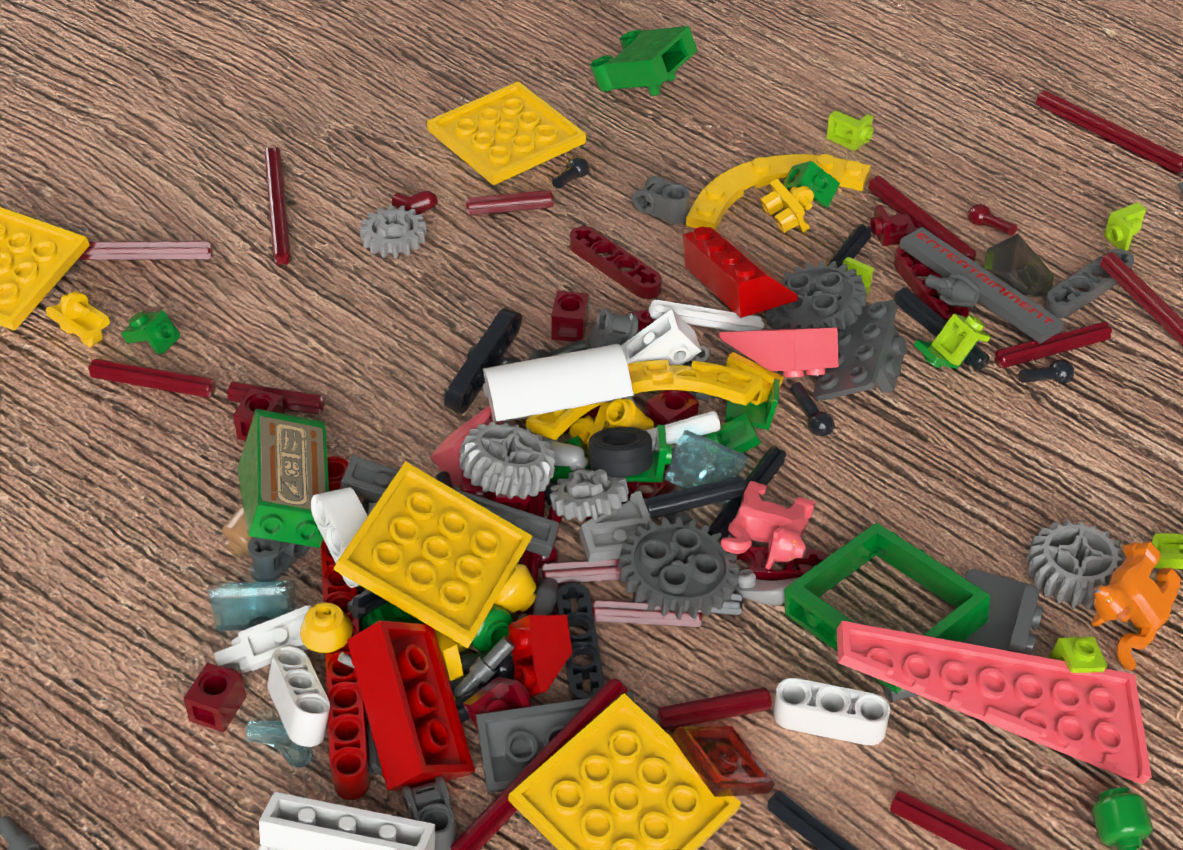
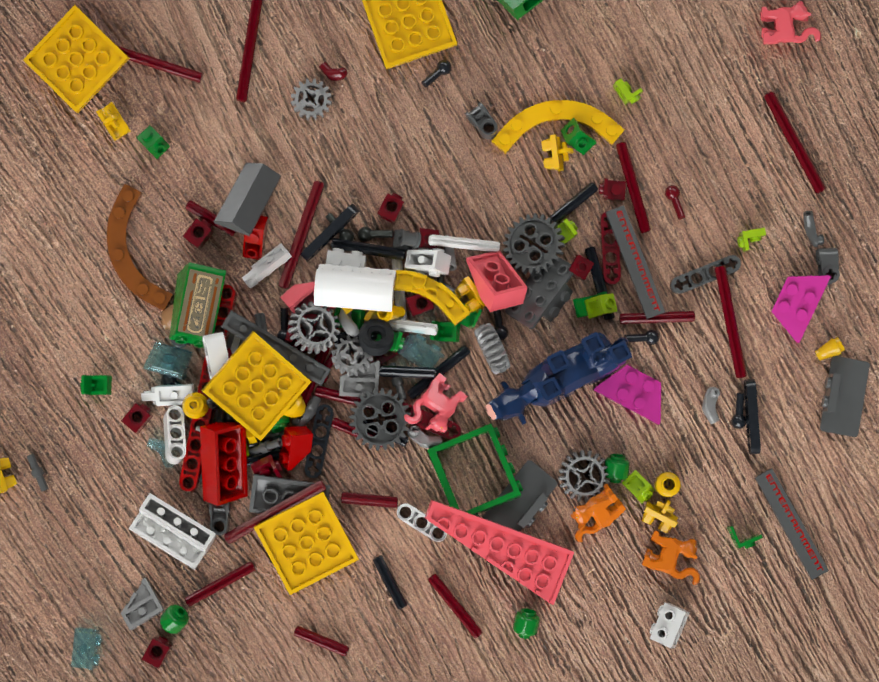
camera: 15 degrees right, 40 degrees up
(122, 668) = (96, 385): none -> green bracket
(134, 489) = (120, 255): none -> dark orange plate
(152, 378) = (147, 179): dark red axle -> none
(332, 344) = (248, 198): none -> dark grey slope
(358, 399) = (254, 244): none -> red slope
(390, 430) = (266, 265): none -> white hinge
(436, 384) = (301, 234): none -> dark red axle
(509, 202) = (389, 90): dark red axle -> none
(641, 281) = (437, 164): dark red beam -> none
(723, 761) = (359, 535): clear red tile -> none
(733, 273) = (498, 209): red slope -> none
(822, 426) = (492, 348): none -> light grey gear
(906, 301) = (580, 267): none -> dark red bracket
(954, 290) = (616, 265): dark grey piece -> none
(963, 409) = (561, 376): none -> dark blue animal
(1015, 33) = (783, 24): none -> coral animal
(1019, 267) = (663, 258): clear smoke slope -> none
(1080, 654) = (549, 538): lime bracket -> none
(1082, 441) = (634, 391): none -> dark pink wing
(1124, 527) = (617, 468): none -> green head

